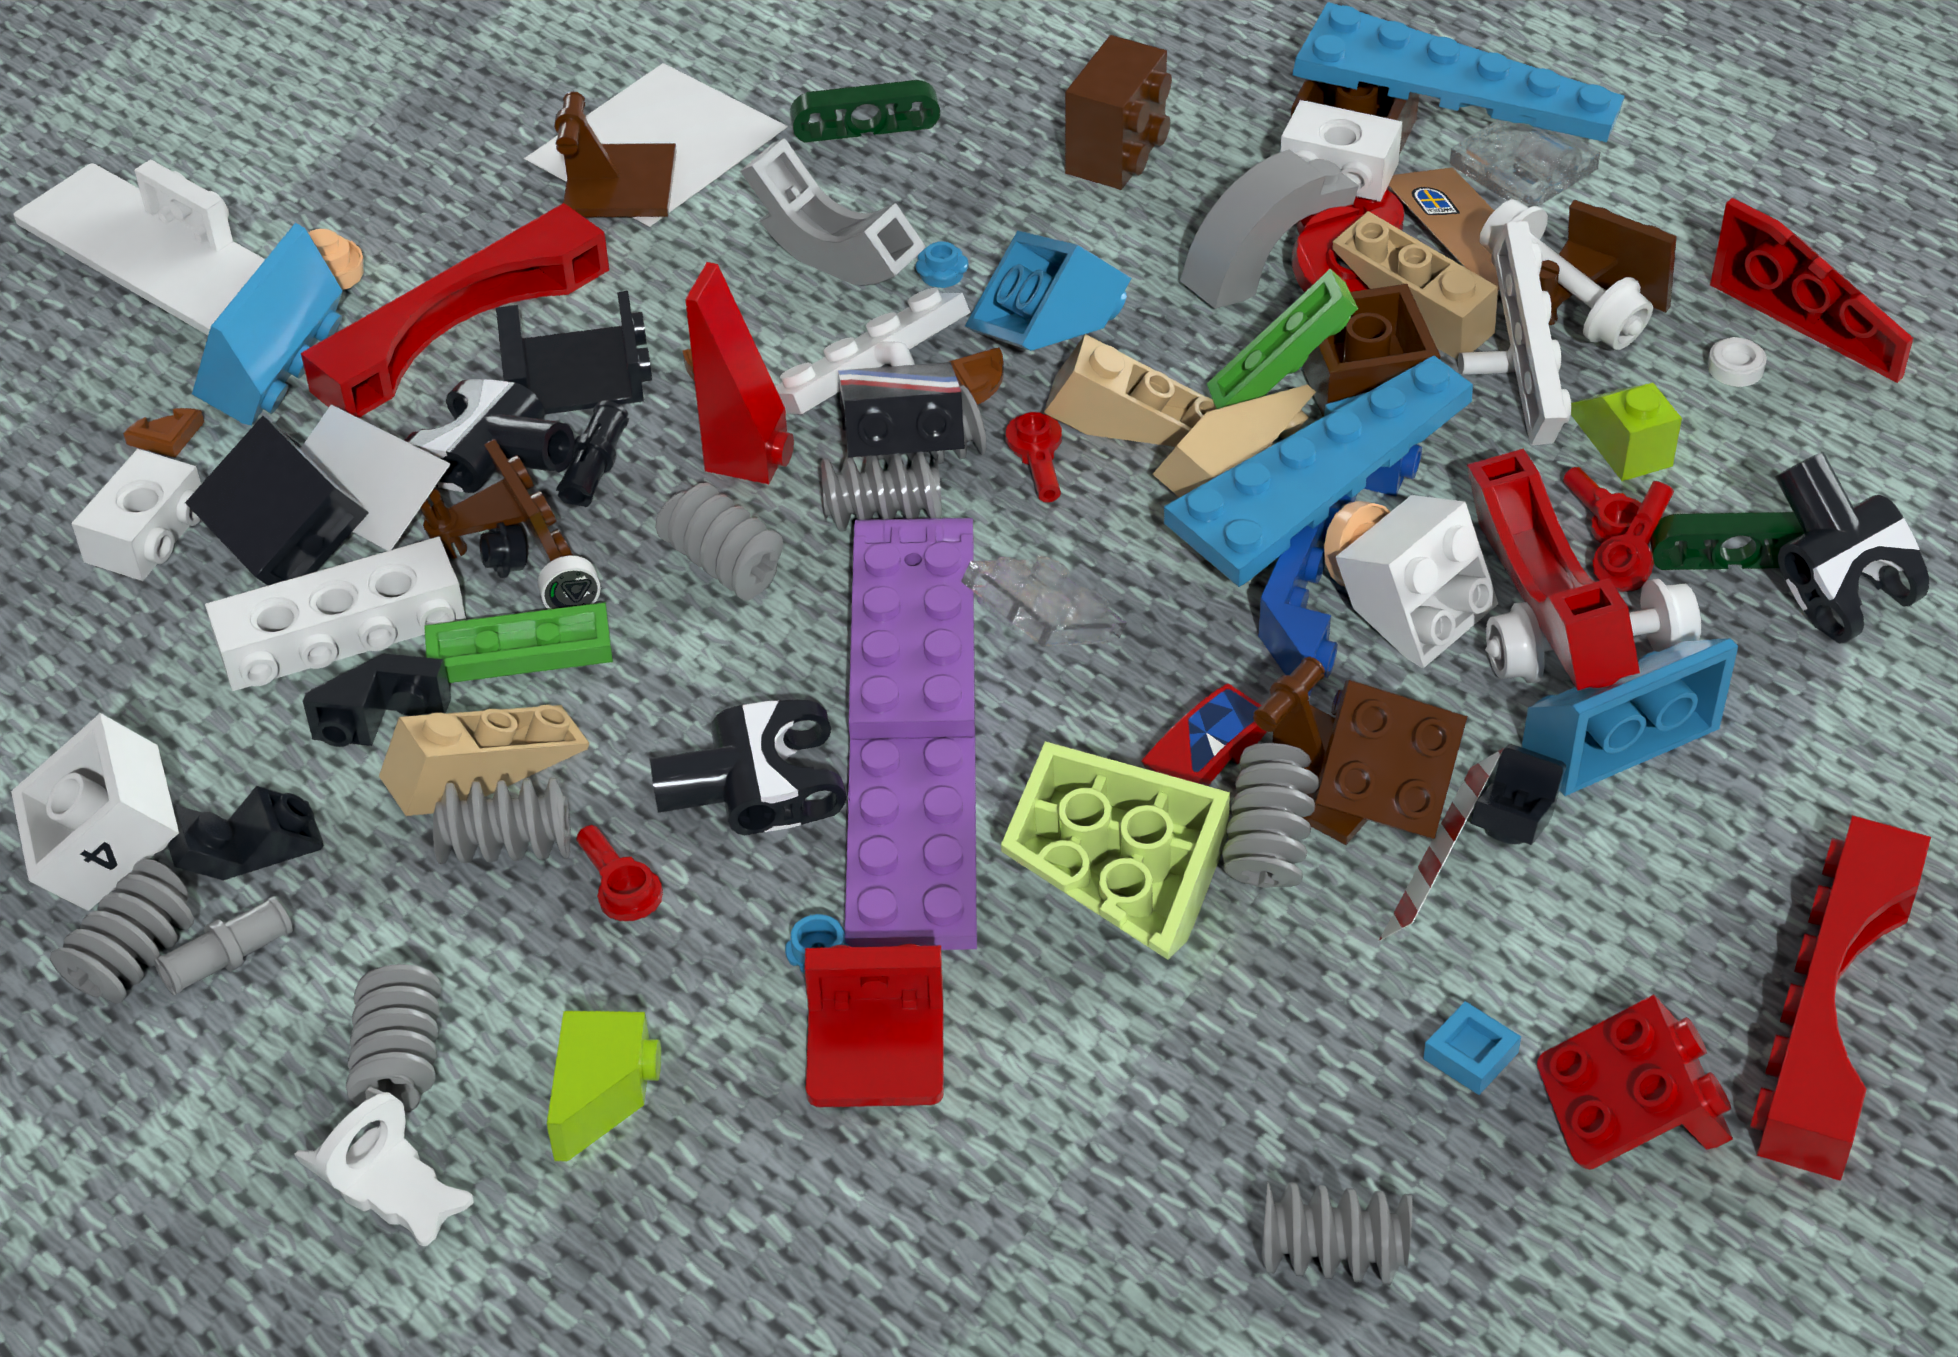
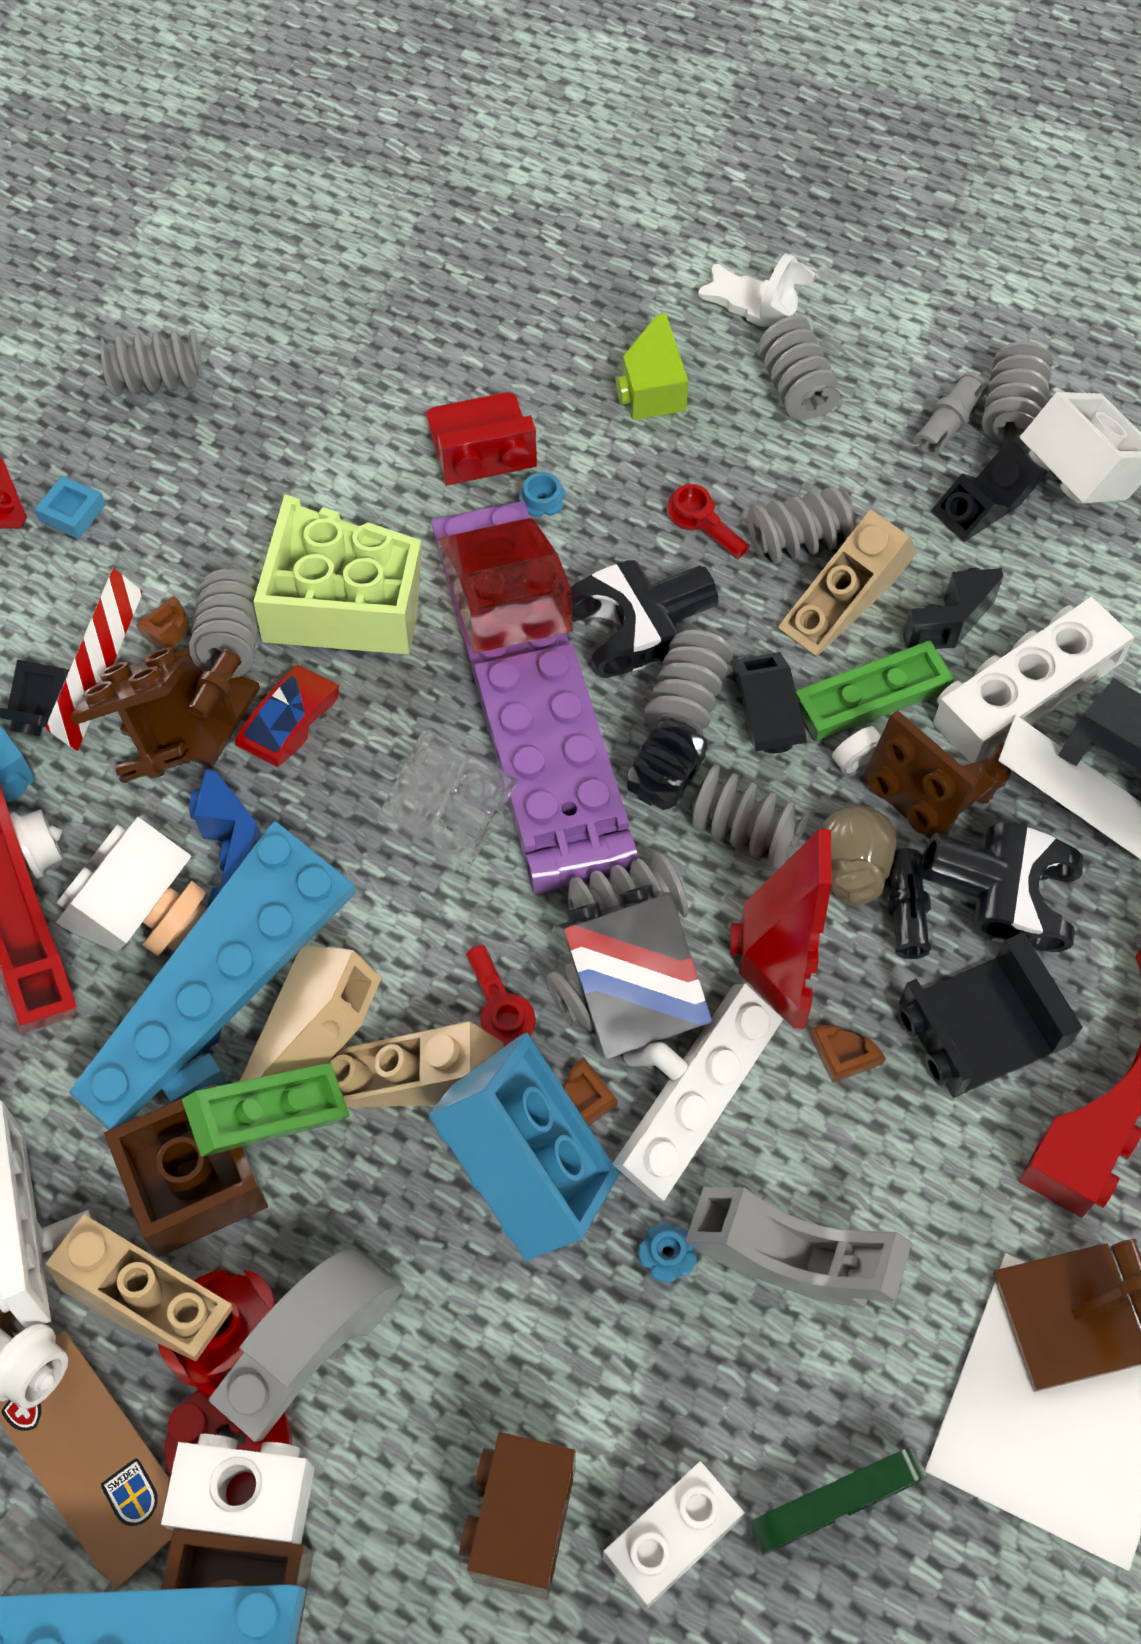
camera: 165 degrees right, 15 degrees up
(624, 493) = (860, 853): none -> dark tan hair
(642, 648) = (769, 702): none -> black slope
(729, 665) = (689, 680): none -> light grey piece
(789, 585) = (667, 764): none -> black gear
(907, 778) = (508, 584): none -> clear red slope
(1002, 105) = (672, 1535): none -> white brick
(1349, 870) = (165, 624): none -> dark orange tile

